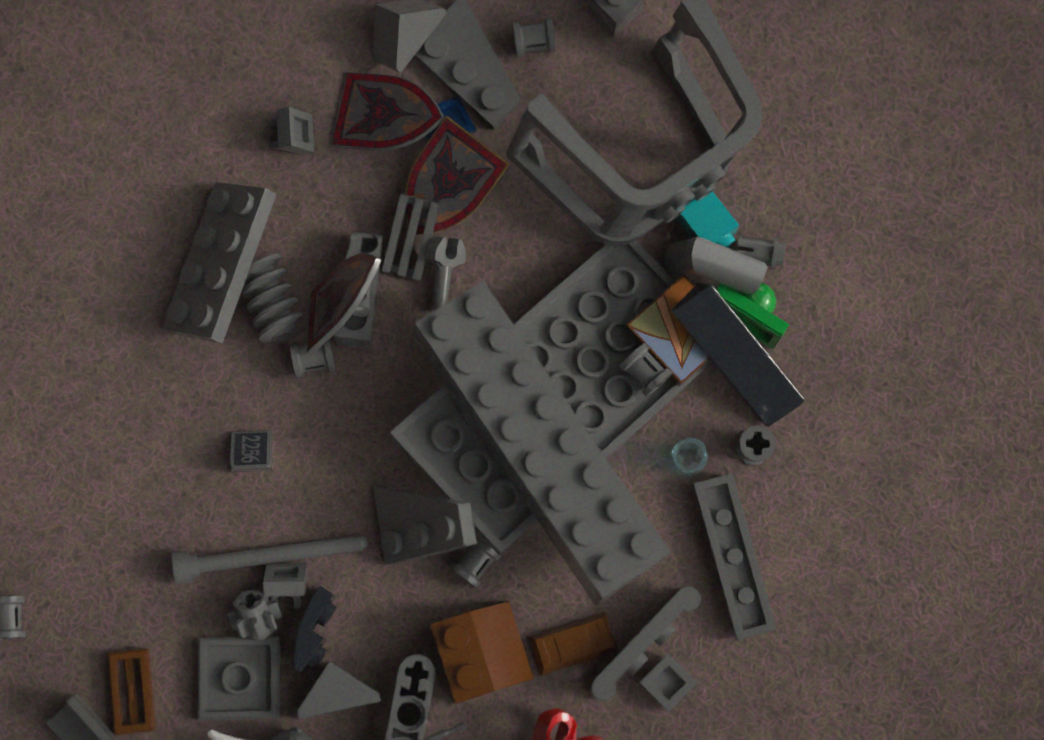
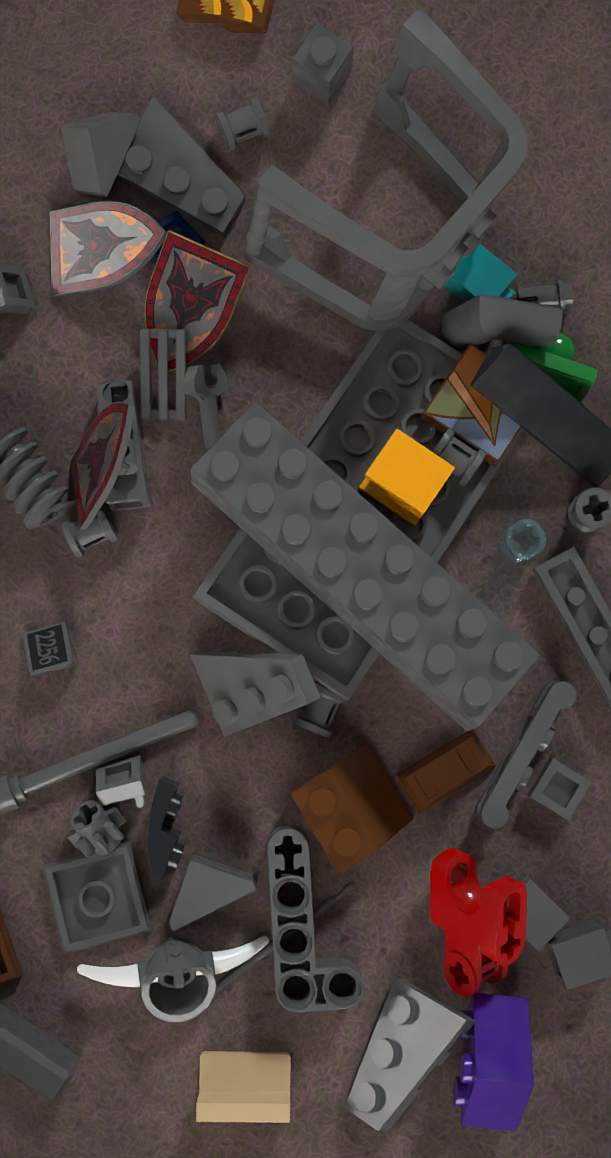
camera: 15 degrees left, 5 degrees up
(596, 376) = (406, 477): none -> light orange piece

